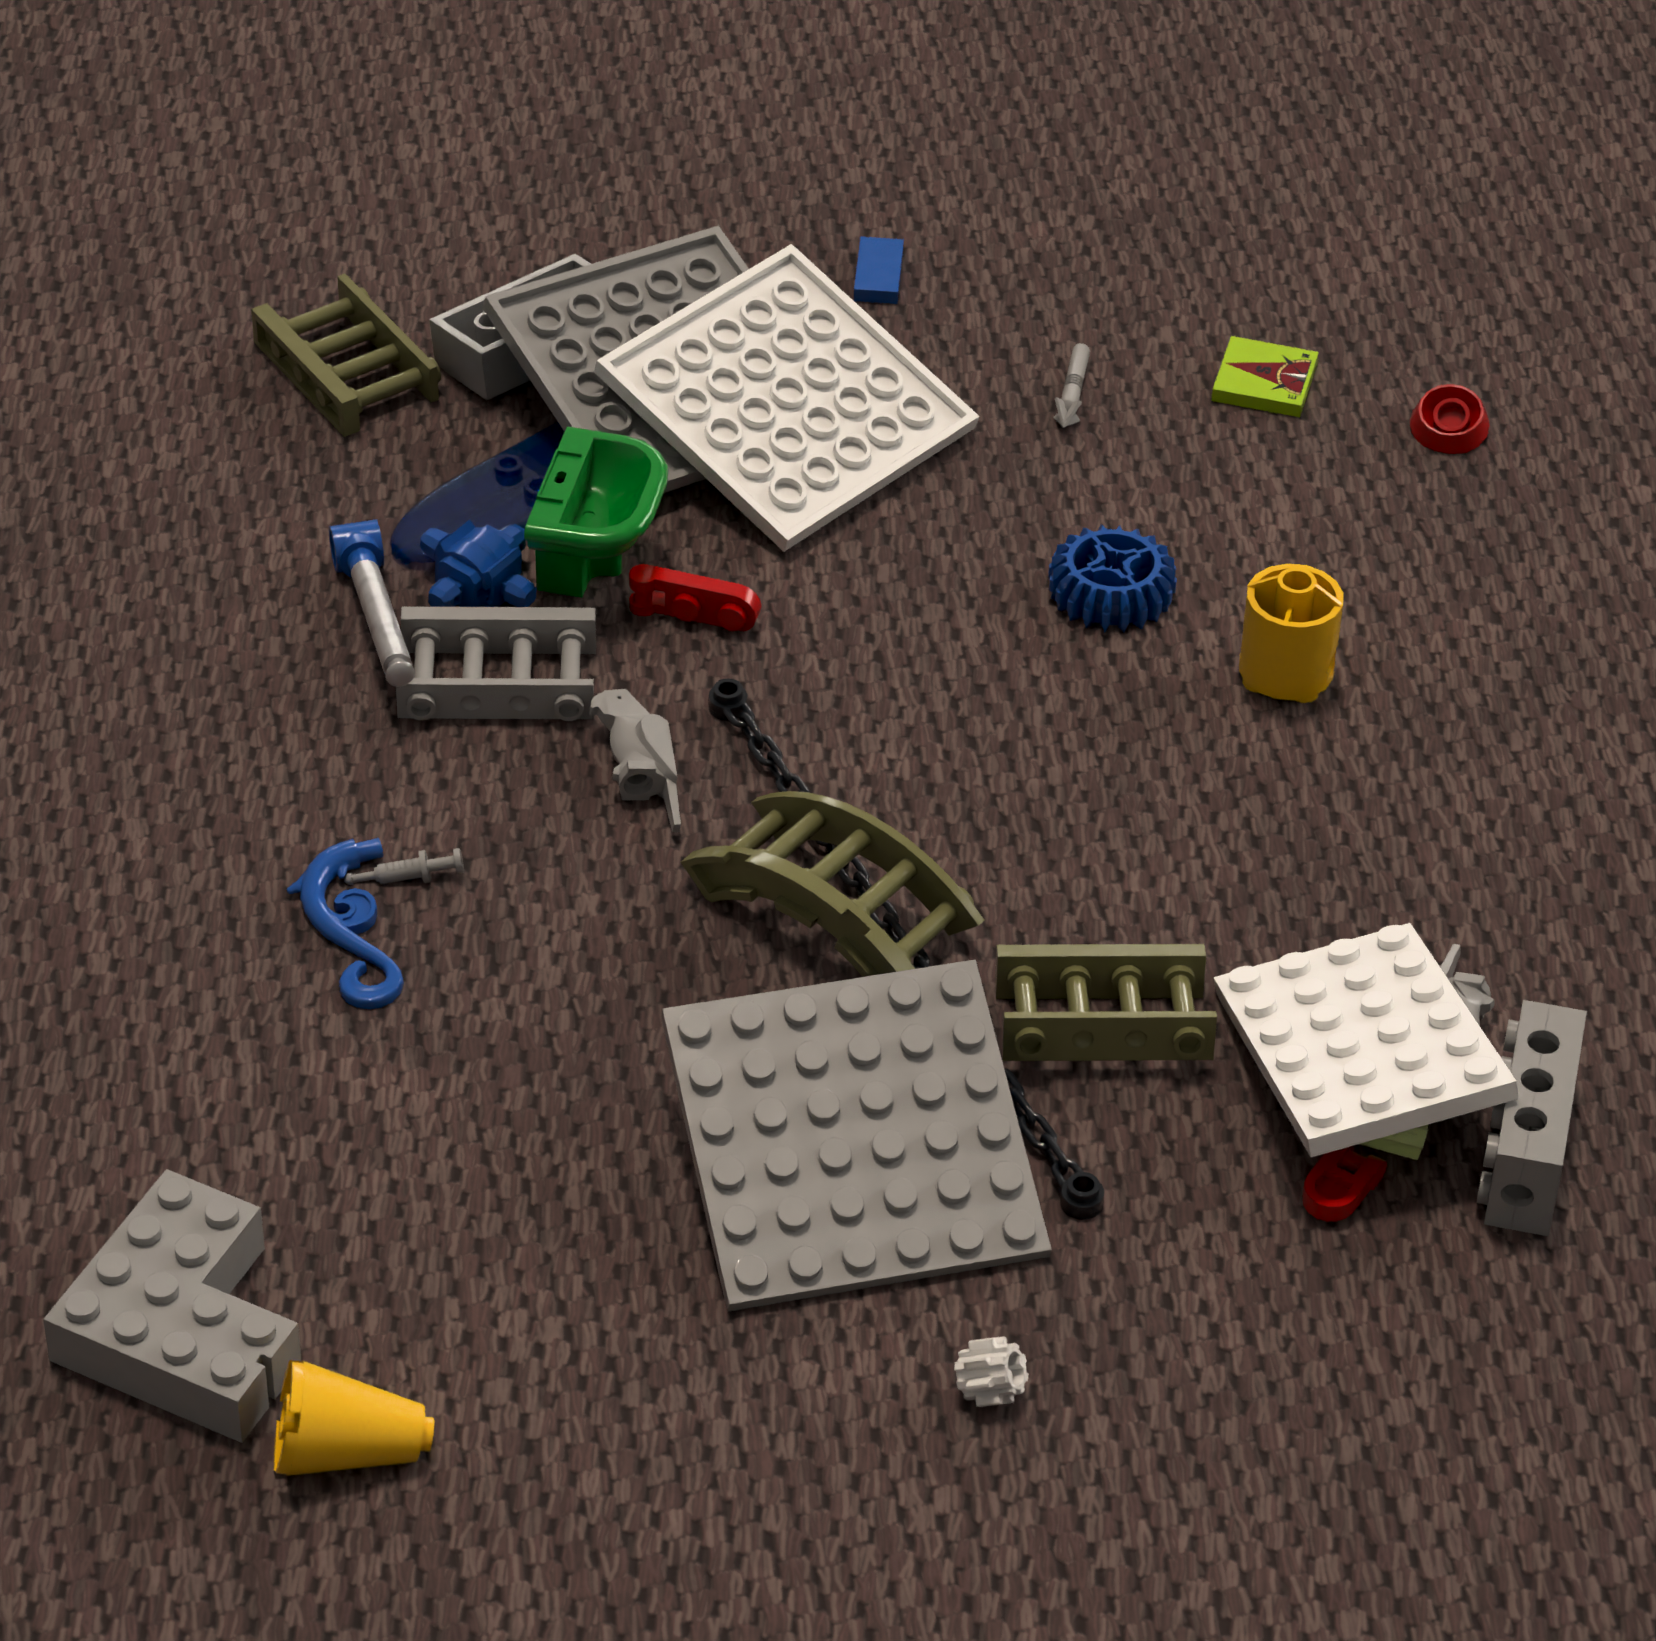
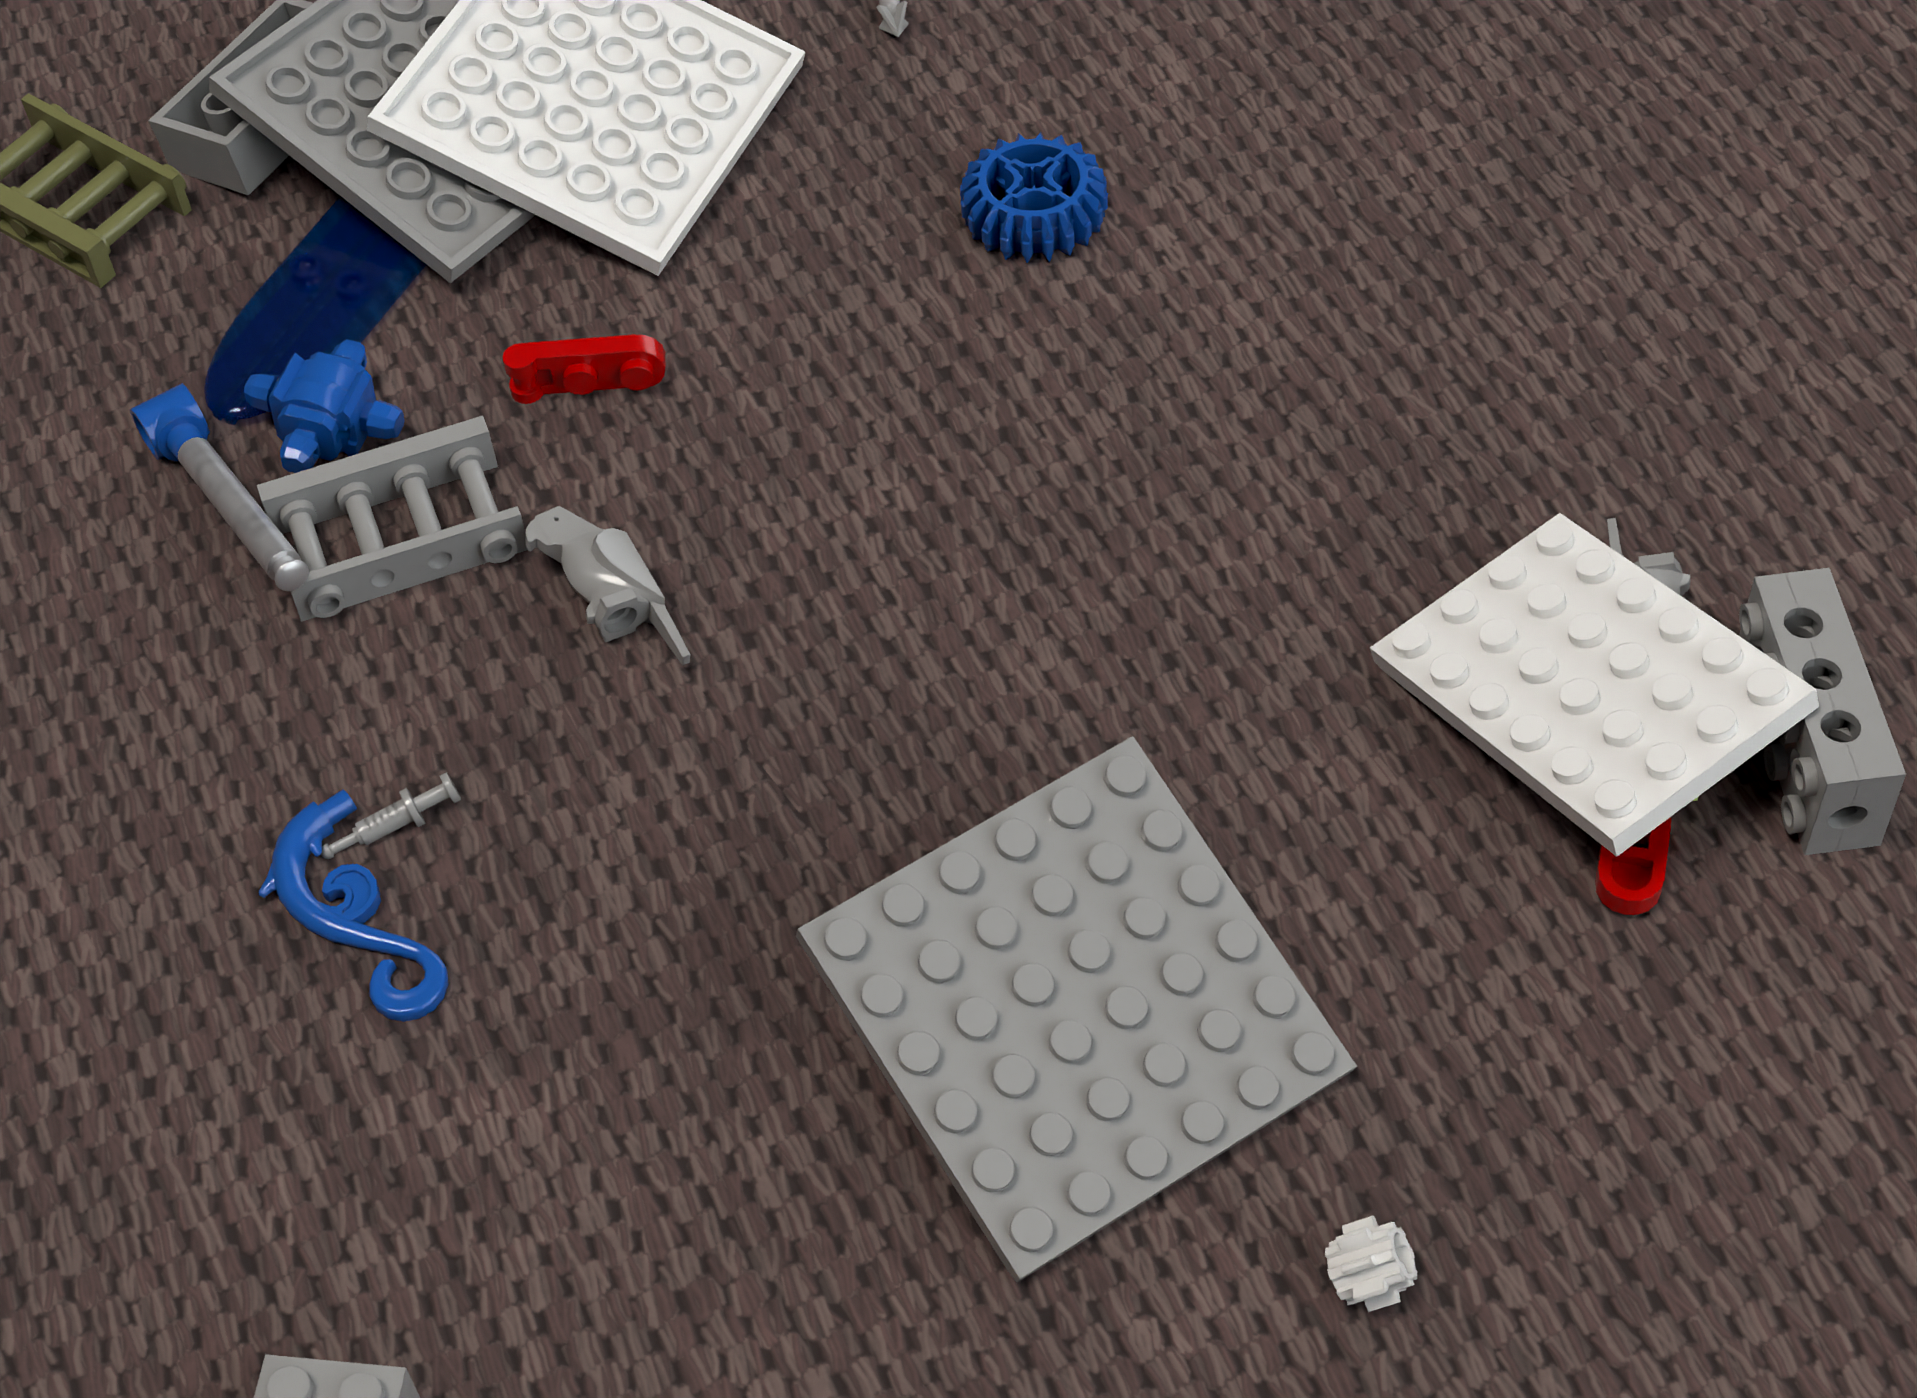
camera: 15 degrees left, 10 degrees up
(592, 507) = (436, 292): green piece -> none
(729, 703) = (678, 489): black piece -> none
(805, 894) = (880, 706): olive fence -> none
(1104, 972) = (1257, 681): olive fence -> none
(1290, 632) = (1265, 203): yellow cylinder -> none

